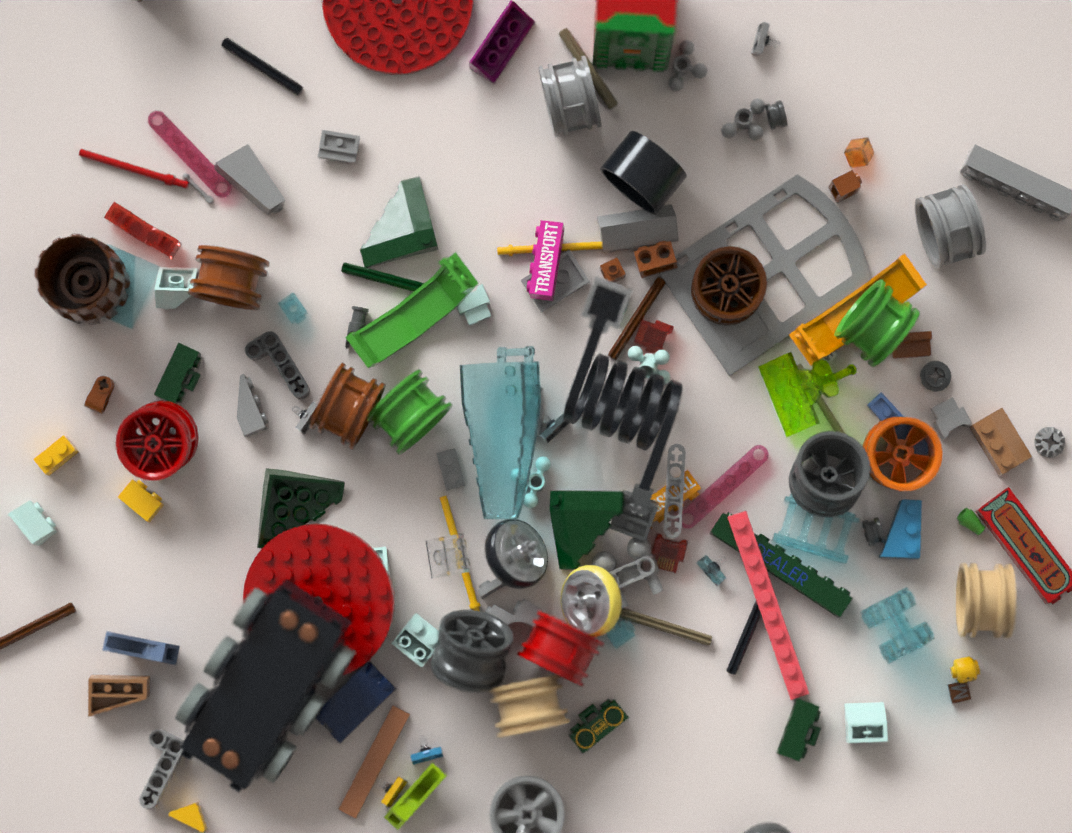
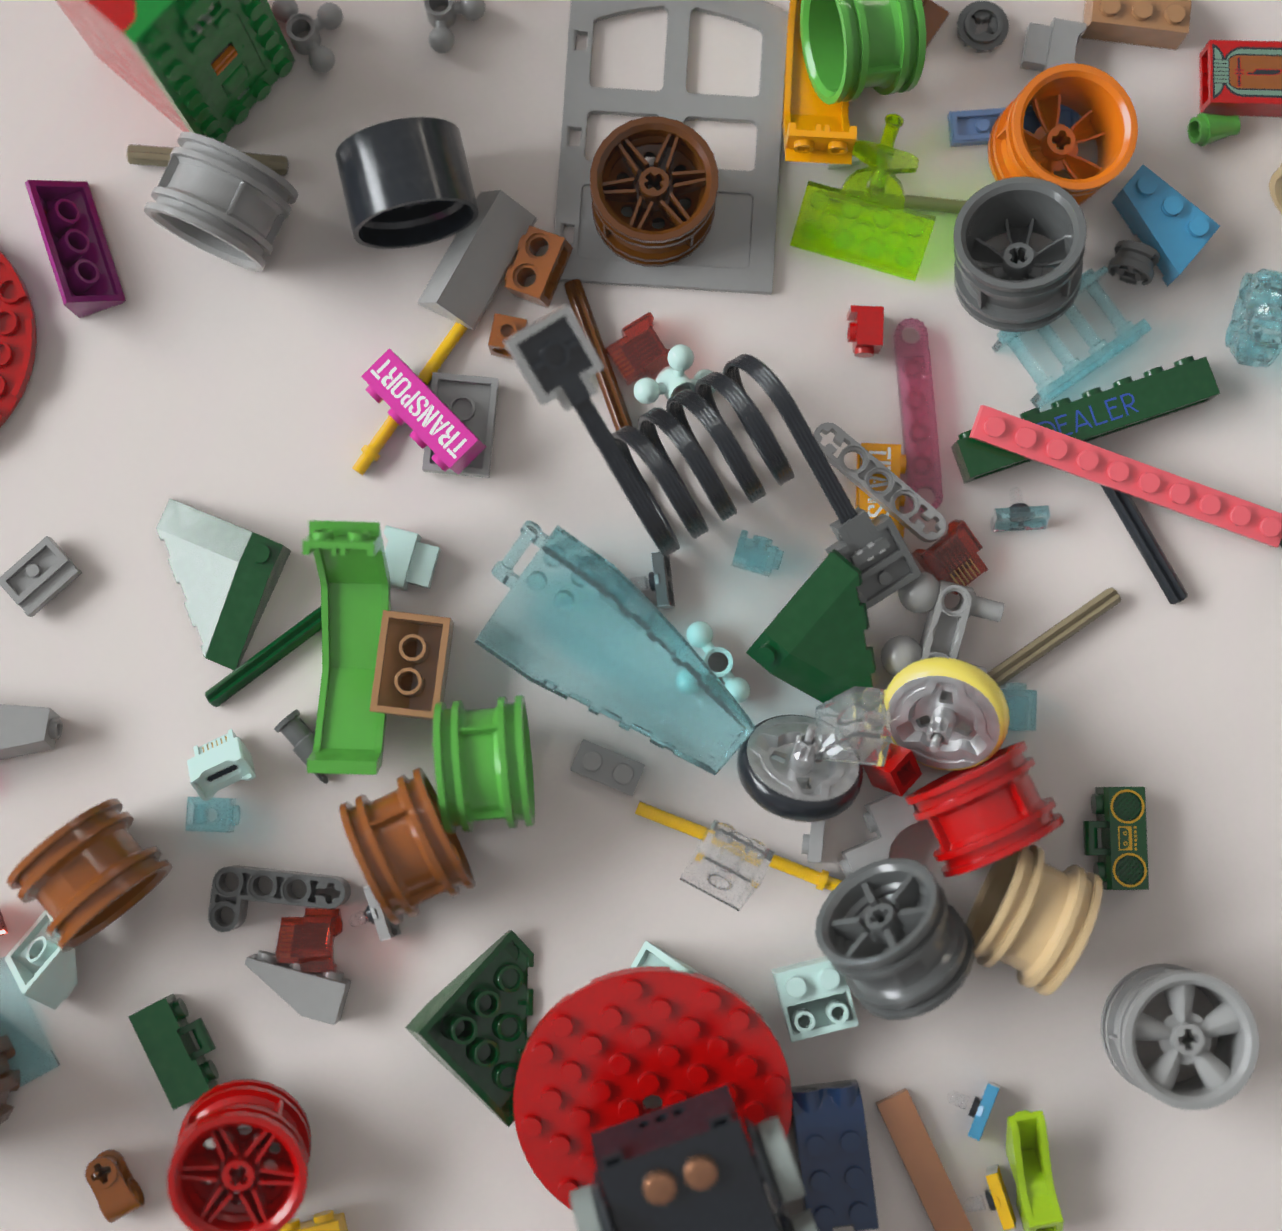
camera: 55 degrees left, 0 degrees up
(272, 395) = (310, 939): none -> clear red piece
(318, 295) = (220, 765): none -> light aqua piece
(428, 345) = (411, 664): none -> medium nougat slope
(548, 596) = (898, 773): none -> red brick
(552, 564) = (854, 727): none -> clear slope
(600, 461) = (757, 554): none -> clear light blue brick
(744, 432) = (865, 330): none -> red brick

